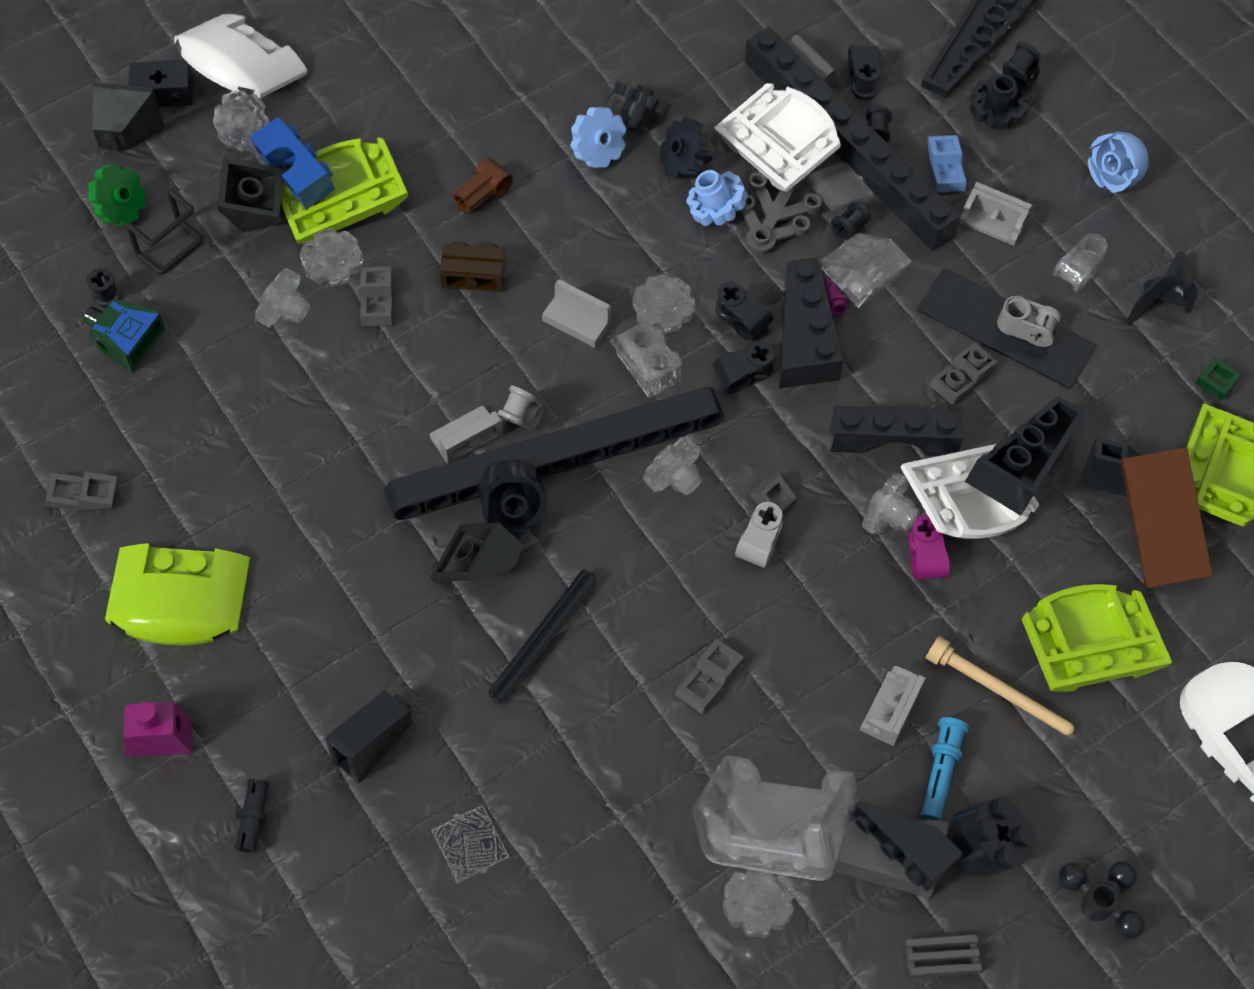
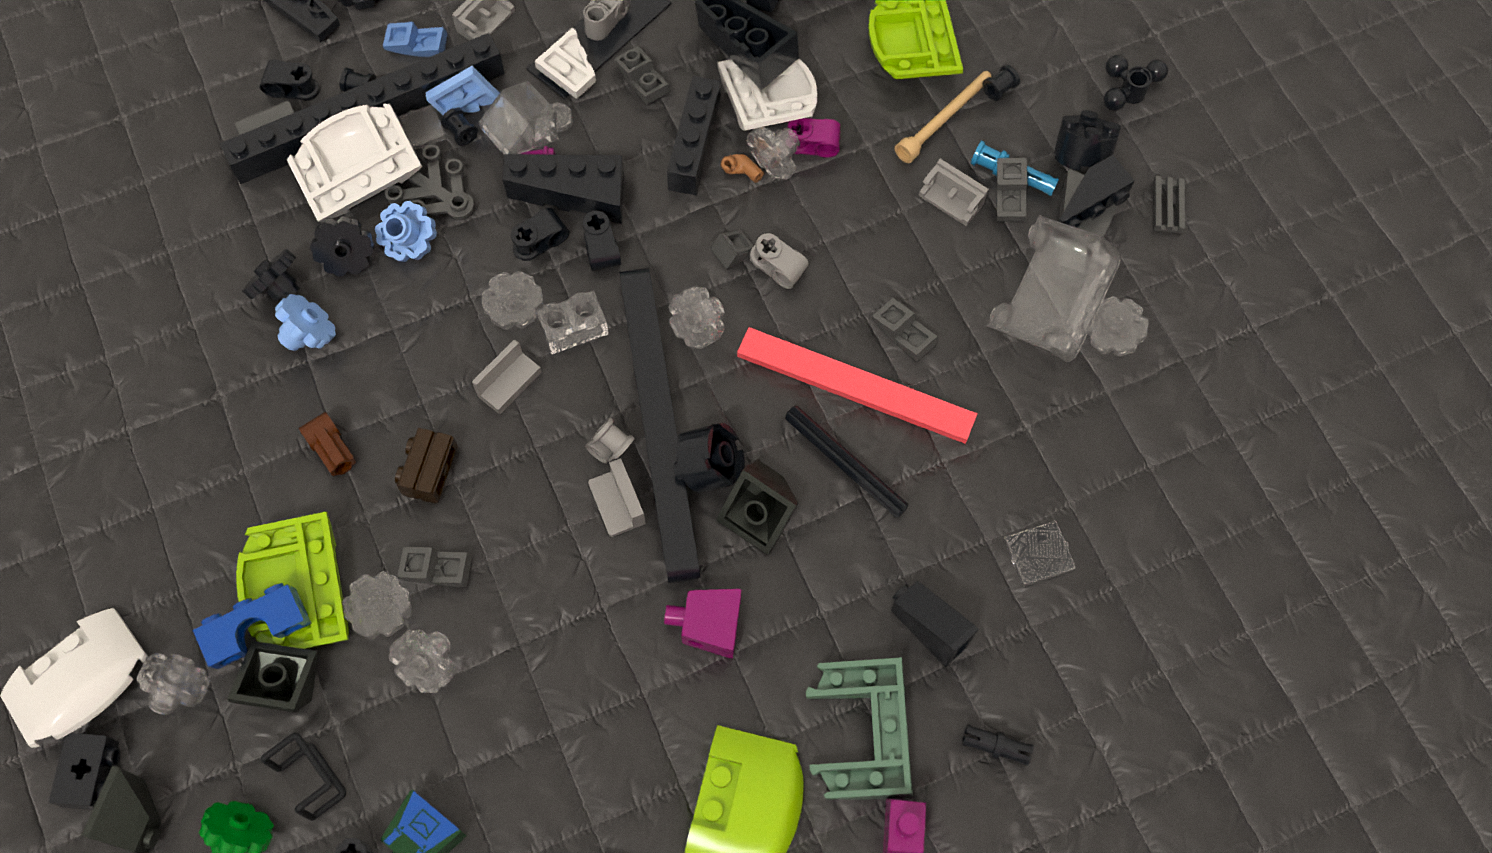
camera: 80 degrees left, 5 degrees up
(216, 714) = (891, 771): none -> sand green wedge
(349, 531) = (708, 620): none -> magenta torso
(632, 639) = (857, 385): none -> coral tile
(874, 480) = (742, 165): none -> medium nougat arm
(886, 211) = (464, 90): none -> light blue wing
(889, 306) = (564, 116): none -> clear tile
(913, 767) = (1011, 189): none -> dark grey slope
(953, 301) = (567, 65): none -> white wing
(1059, 742) = (1001, 82): none -> black bush

